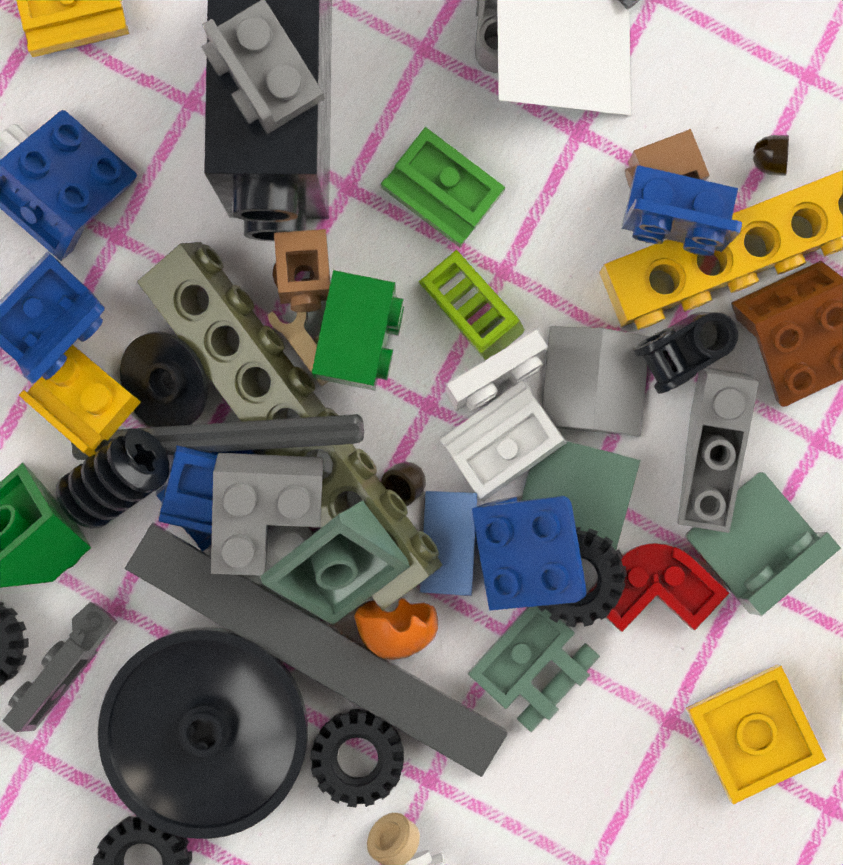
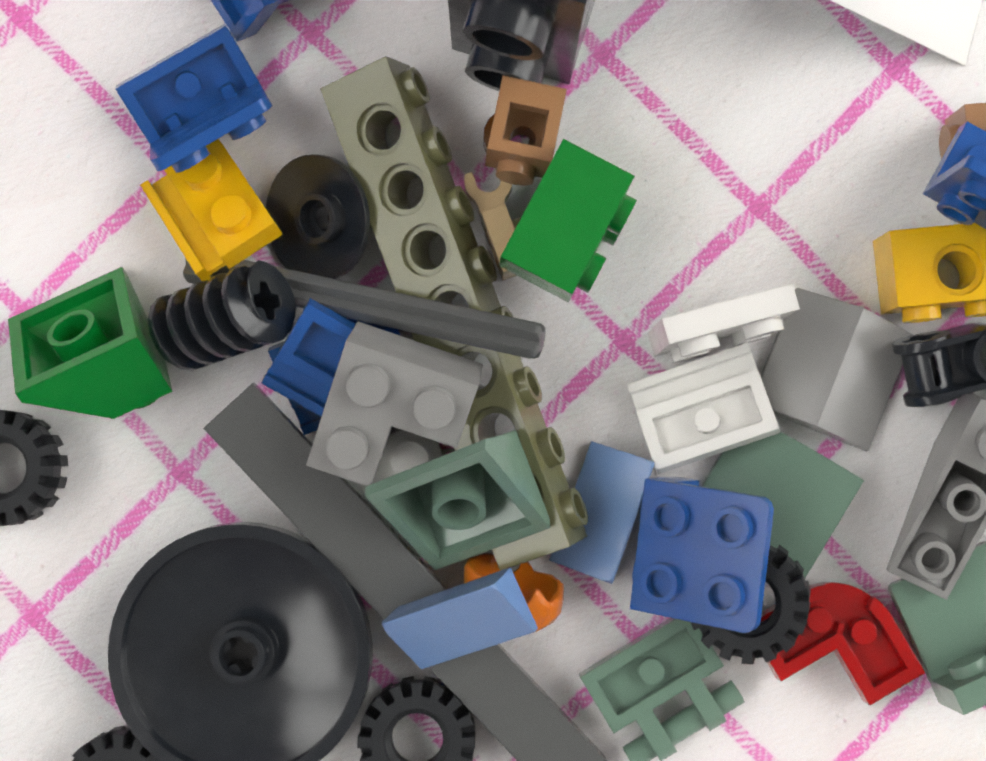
camera: 15 degrees right, 0 degrees up
(62, 667) = (95, 525): dark grey hinge -> none
(362, 656) = (461, 619): none -> medium blue slope
(405, 480) = (572, 421): dark brown hinge -> none
(442, 187) = (717, 84): bright green plate -> none
(499, 337) = (735, 282): lime slope -> none

